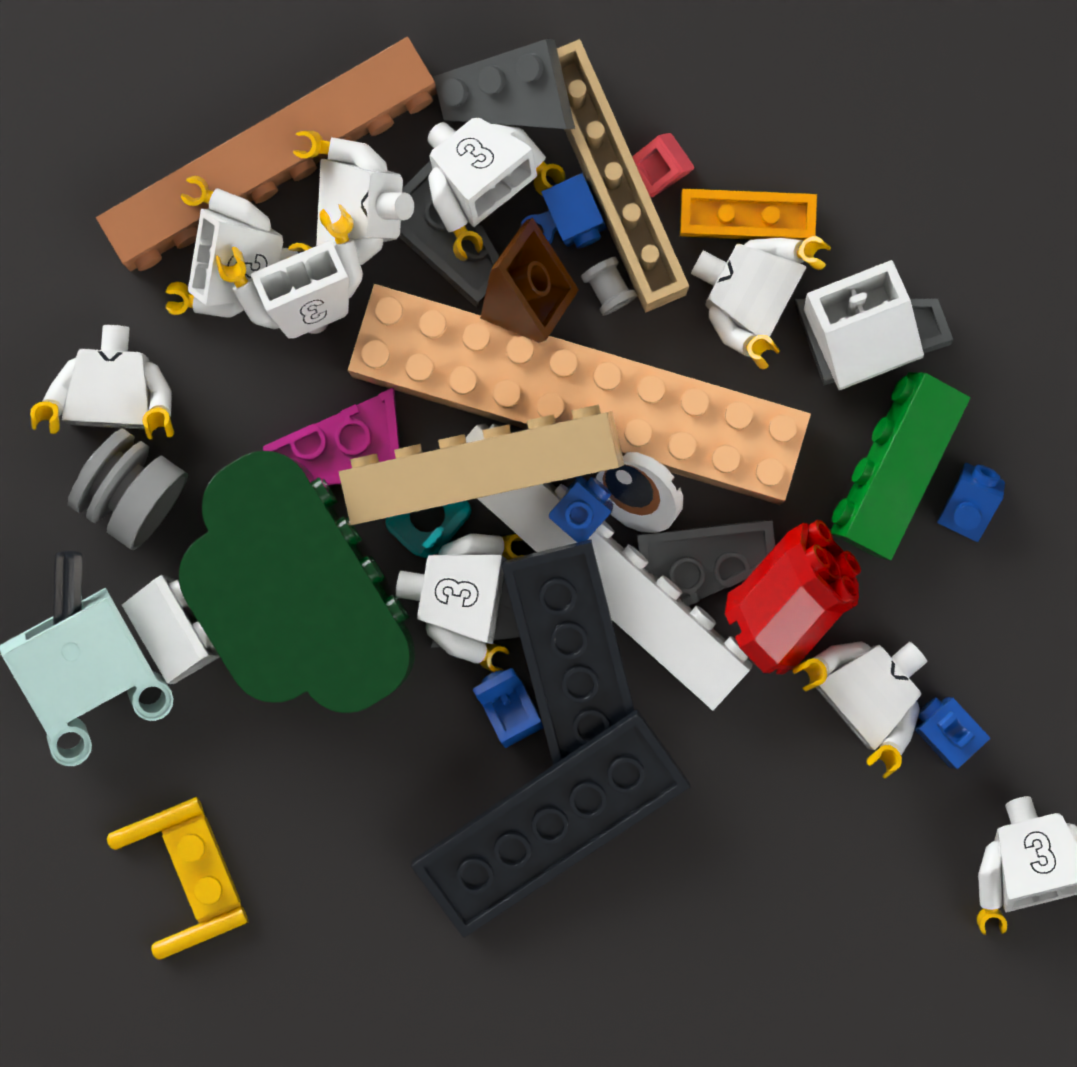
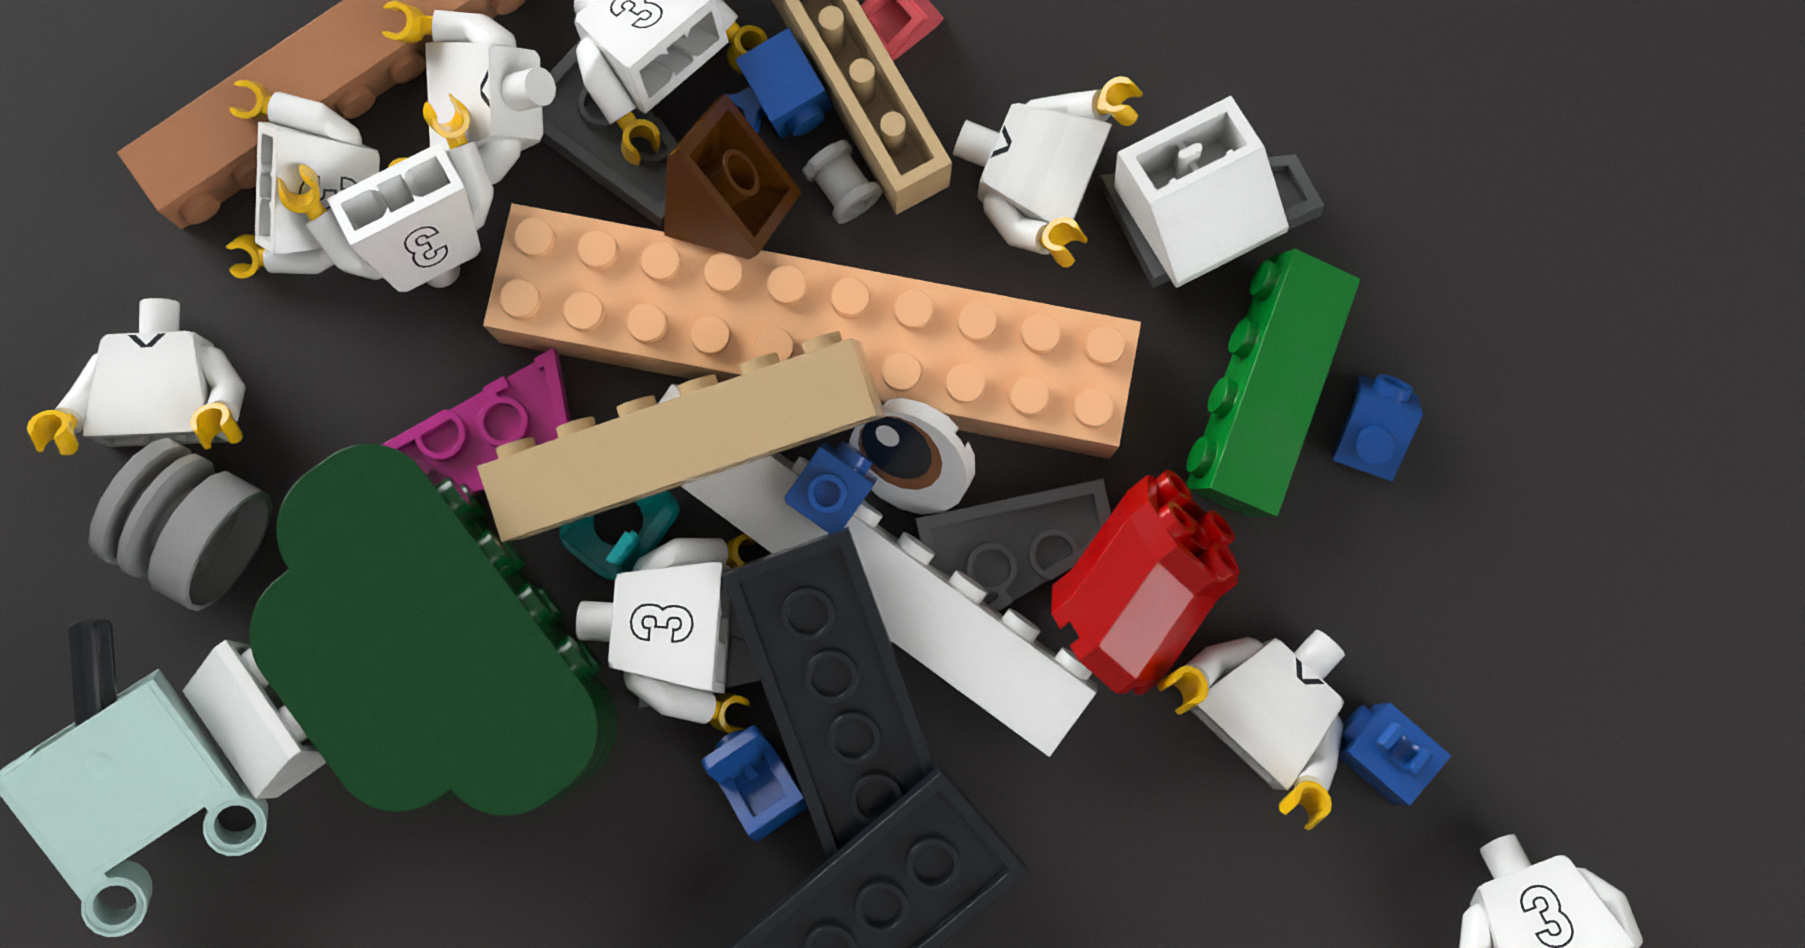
camera: 10 degrees left, 5 degrees down
(747, 214) = (1019, 68): light orange plate -> none

